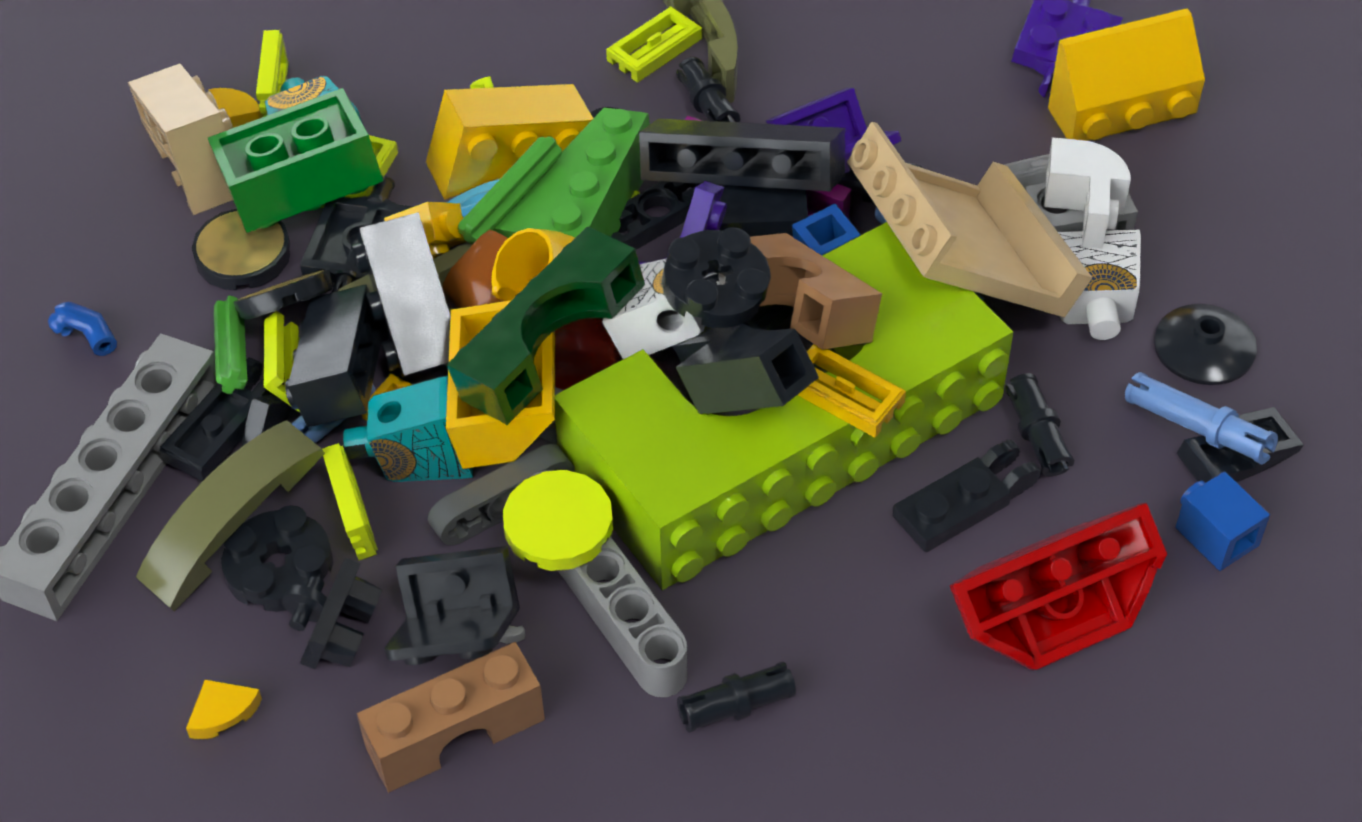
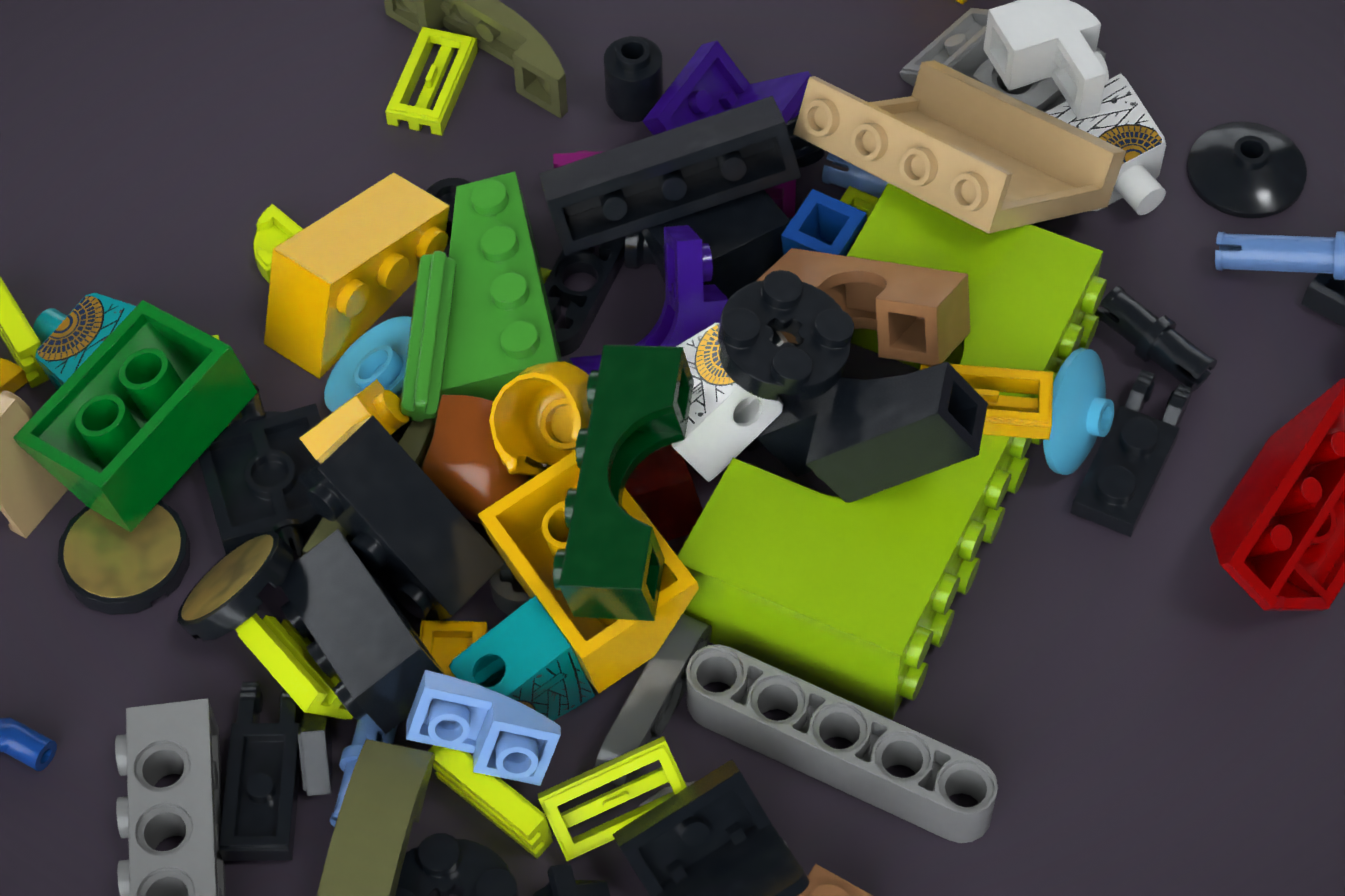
camera: 30 degrees left, 5 degrees up
(229, 346) = (214, 680): bright green axle -> none
(370, 454) = (499, 731): none -> light blue slope
(467, 540) = (599, 776): none -> neon yellow tile
(557, 519) = (761, 700): neon yellow tile -> none
(705, 92) = (542, 117): black pin -> none
(736, 696) = (1063, 798): black pin -> none
(783, 87) = (633, 77): none -> black brick
(929, 439) = (1078, 411): none -> medium azure dish

